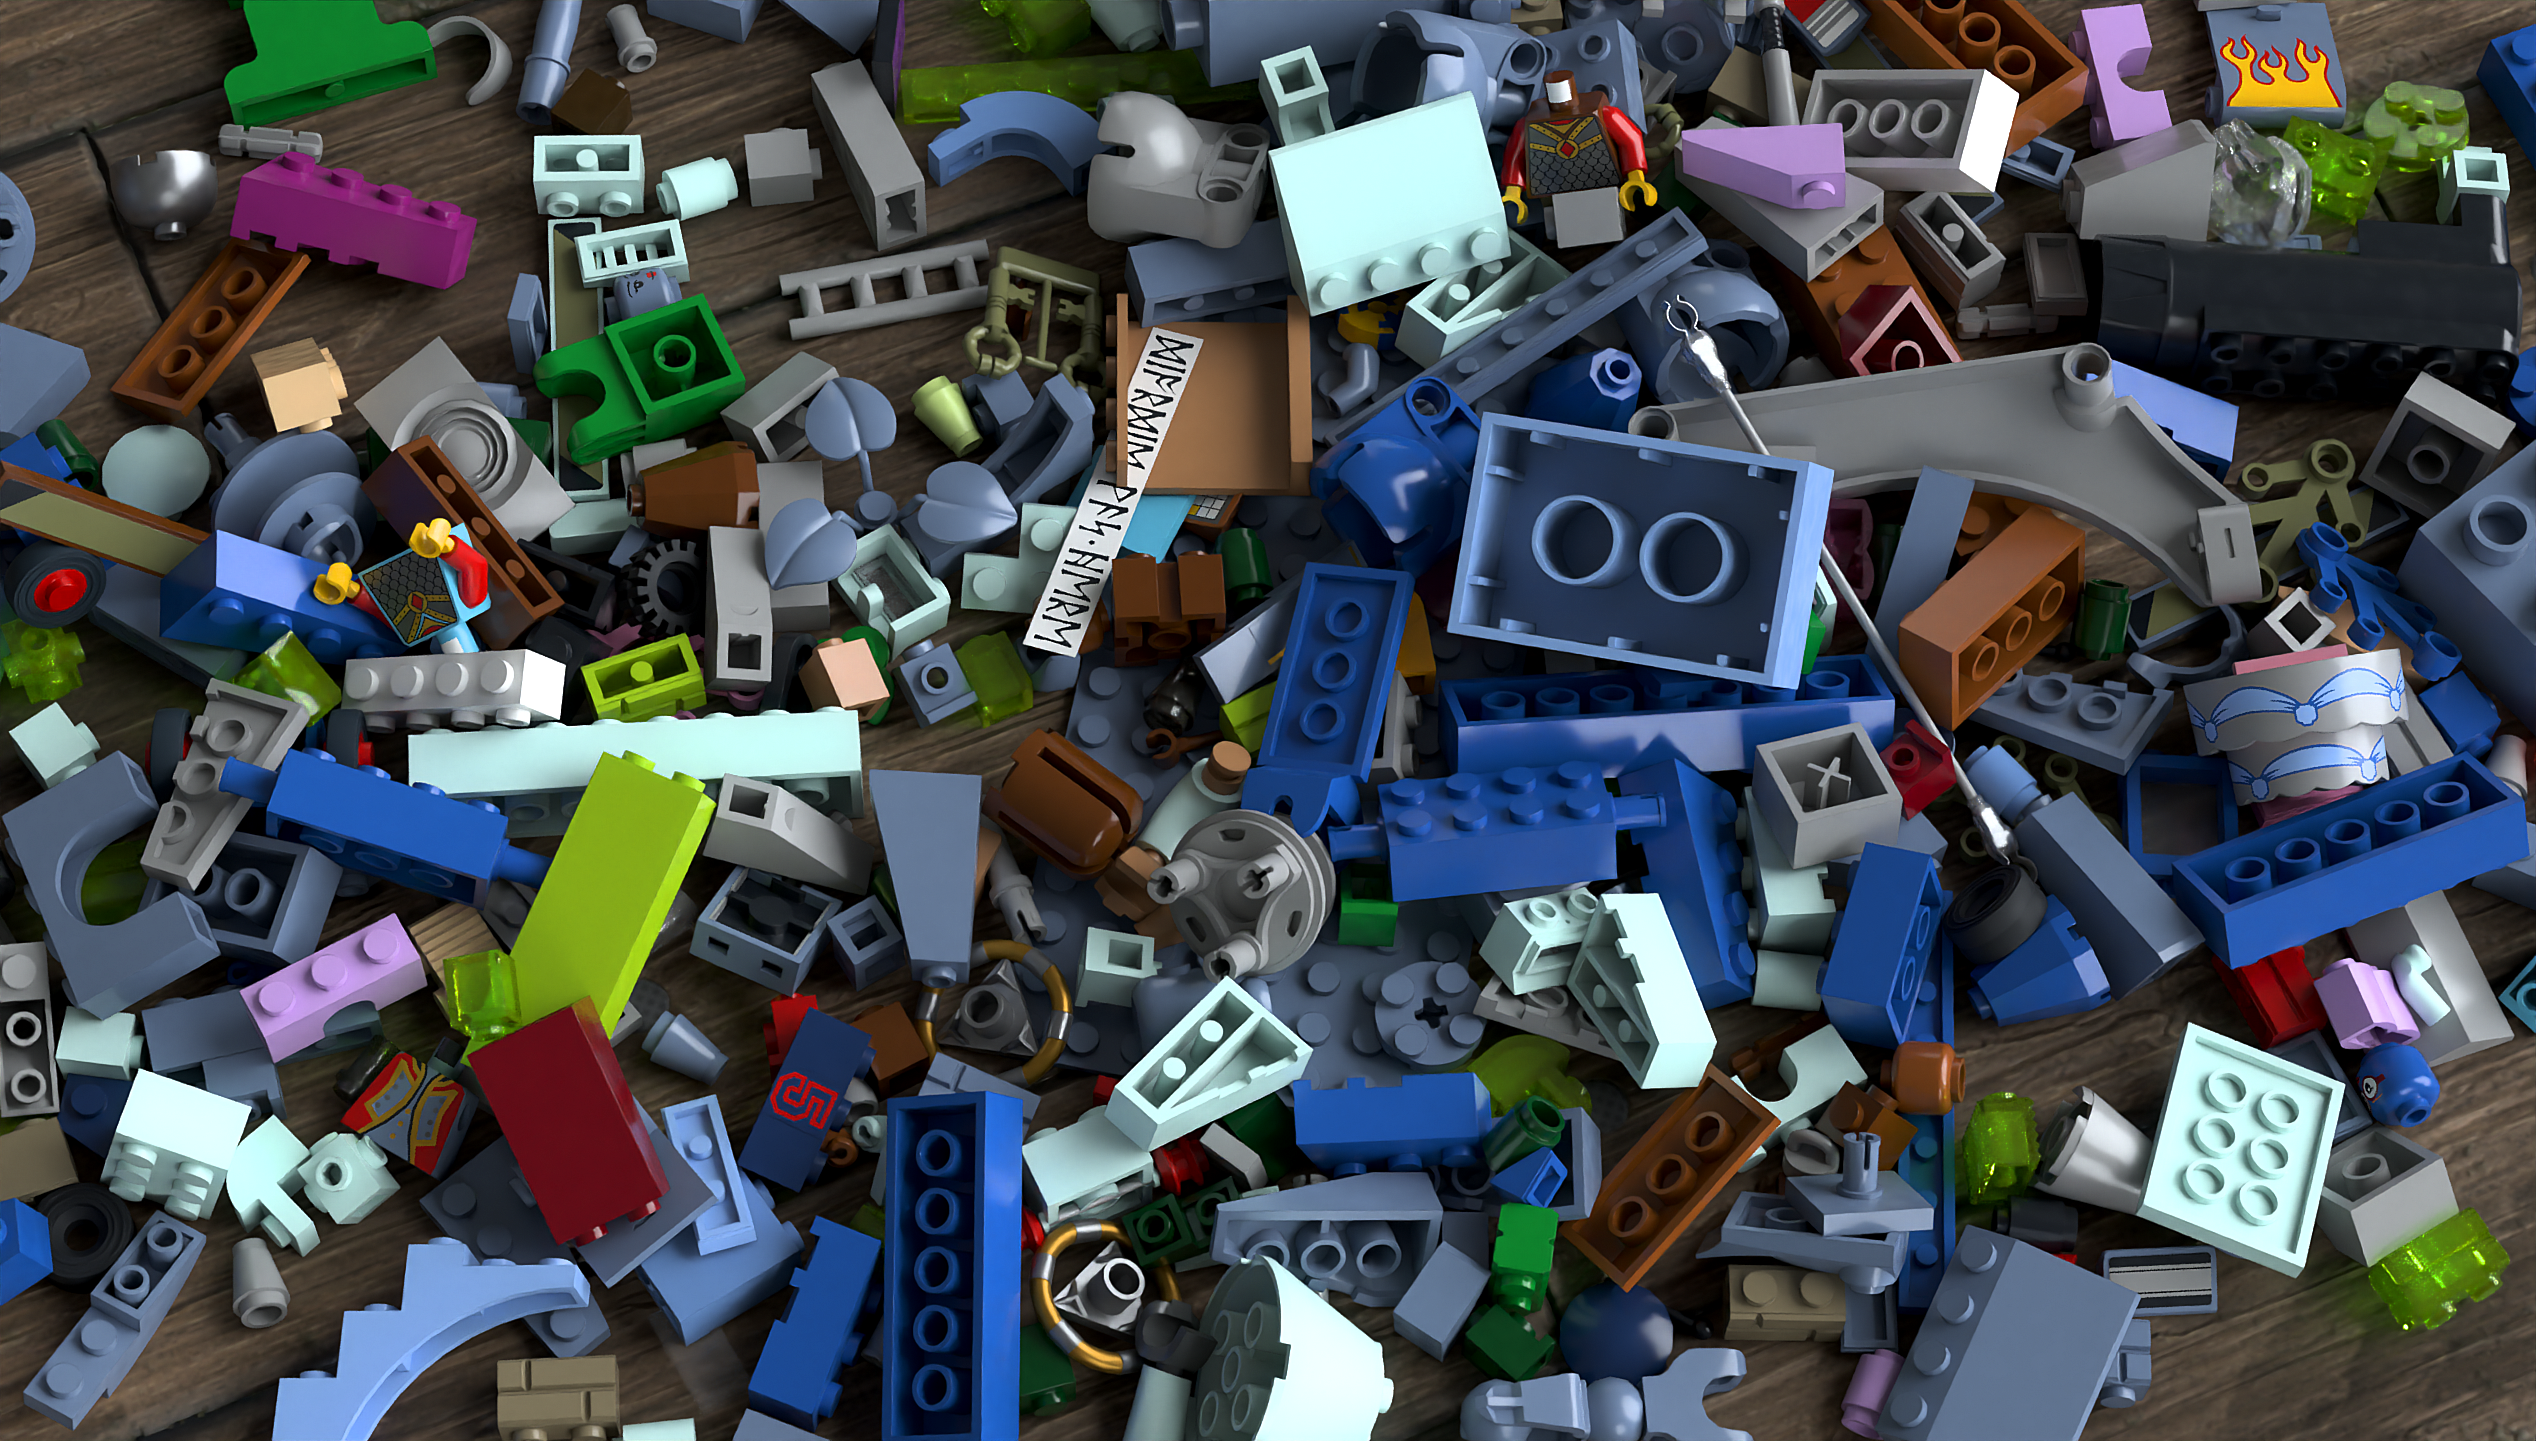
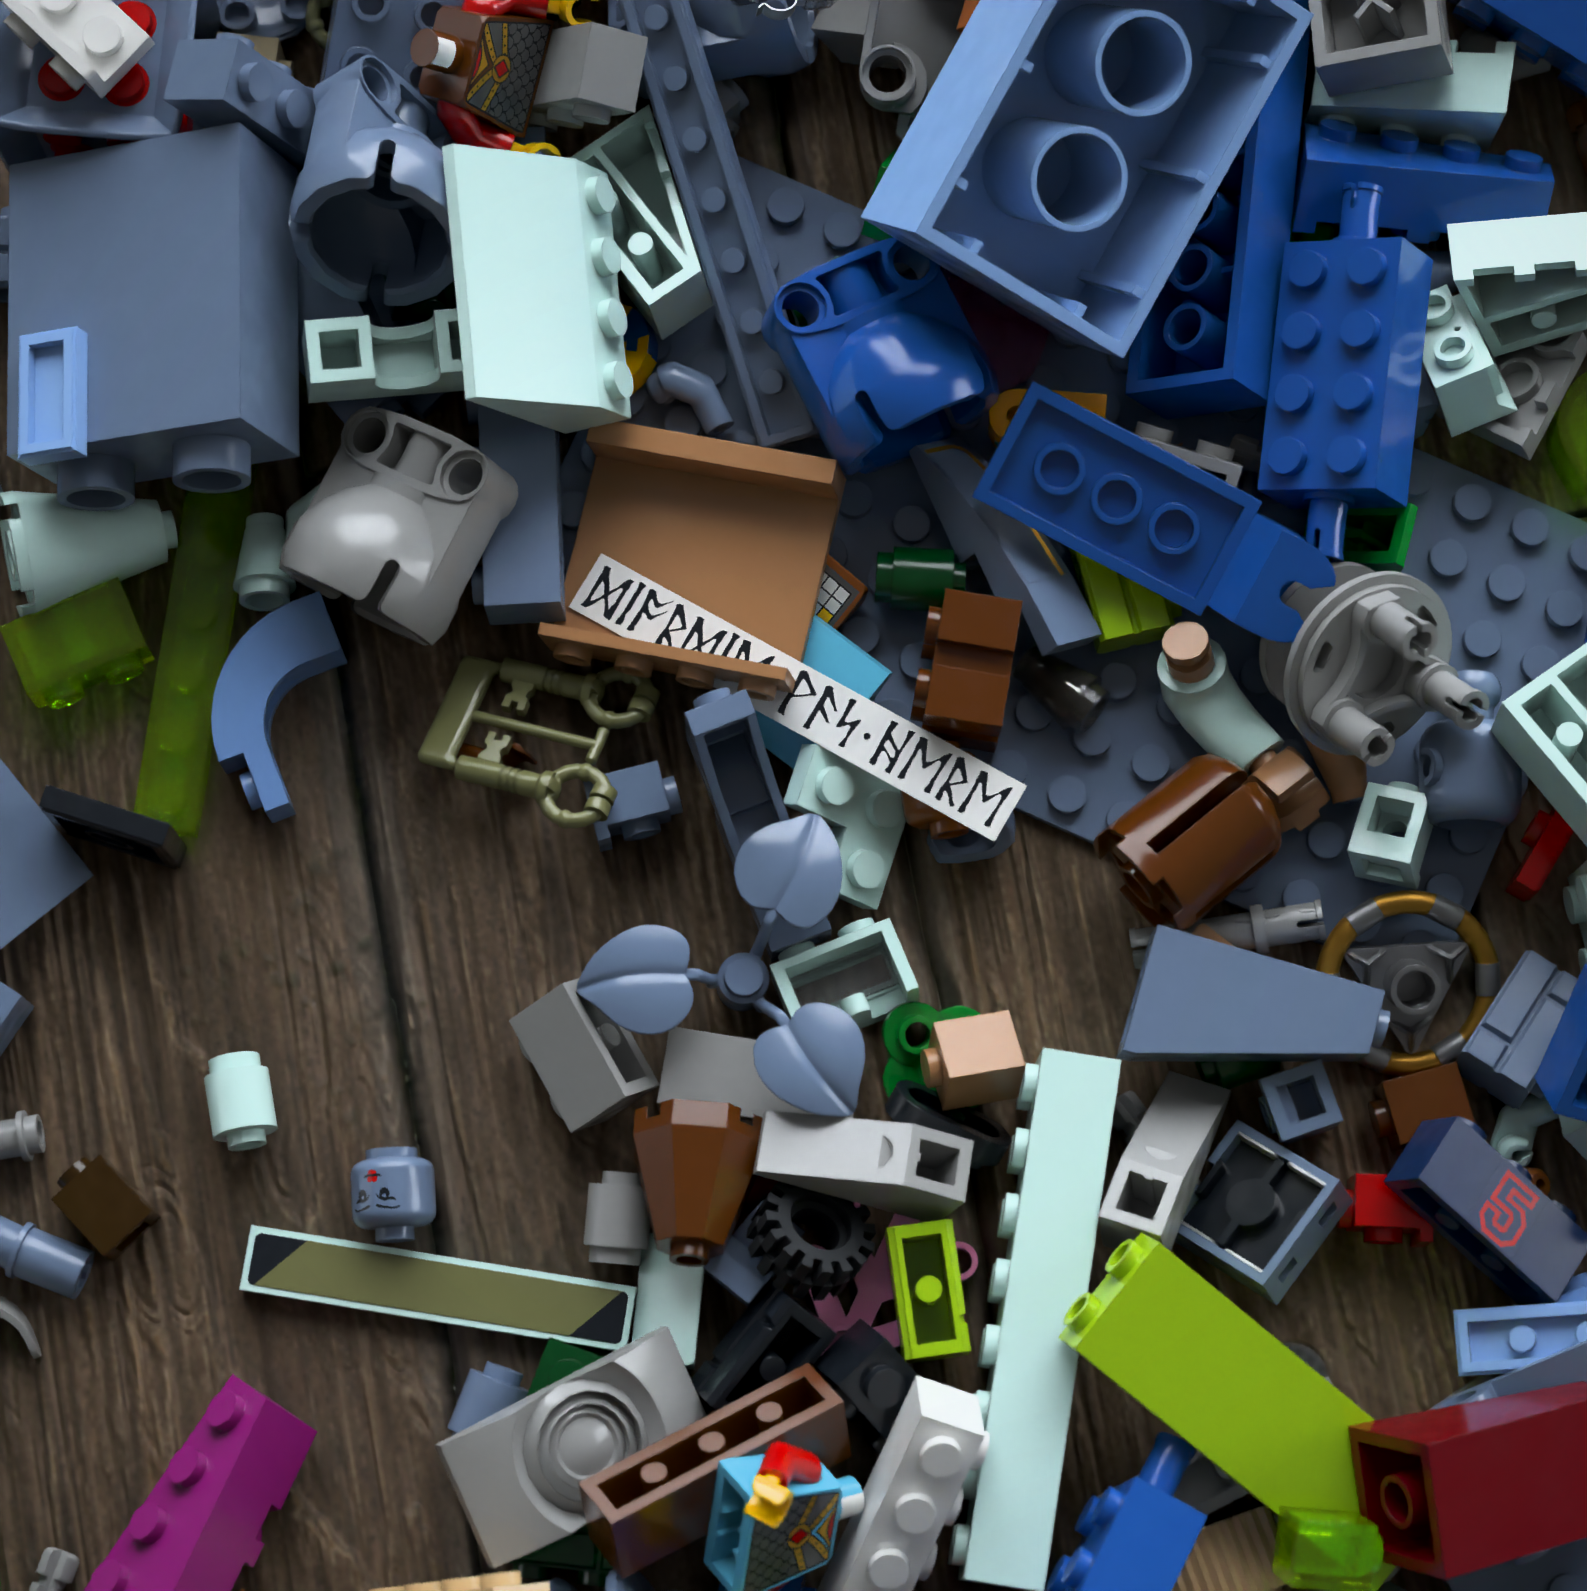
camera: 75 degrees left, 15 degrees up
(527, 323) = (400, 1337): sand blue tile -> none
(589, 175) = (200, 1225): light aqua brick -> none
(647, 375) = (512, 1227): green brick -> none
(648, 237) = (319, 1143): light aqua slope -> none
(683, 1048) = (1371, 1336): sand blue cone -> none
(781, 166) = (235, 993): light grey brick -> none
(866, 310) = (454, 934): light grey bar -> none
(871, 153) = (243, 882): light grey slope -> none
(925, 701) = (982, 958): sand blue brick -> none
(947, 415) = (623, 869): yellowish green cone -> none
(996, 677) = (981, 891): clear neon green brick -> none
(1178, 745) = (1118, 697): reddish brown hand -> none
(1412, 1041) = (1479, 534): sand blue plate -> none
(1587, 391) = (795, 147): blue cone -> none
(1786, 980) = (1534, 117): light aqua brick -> none

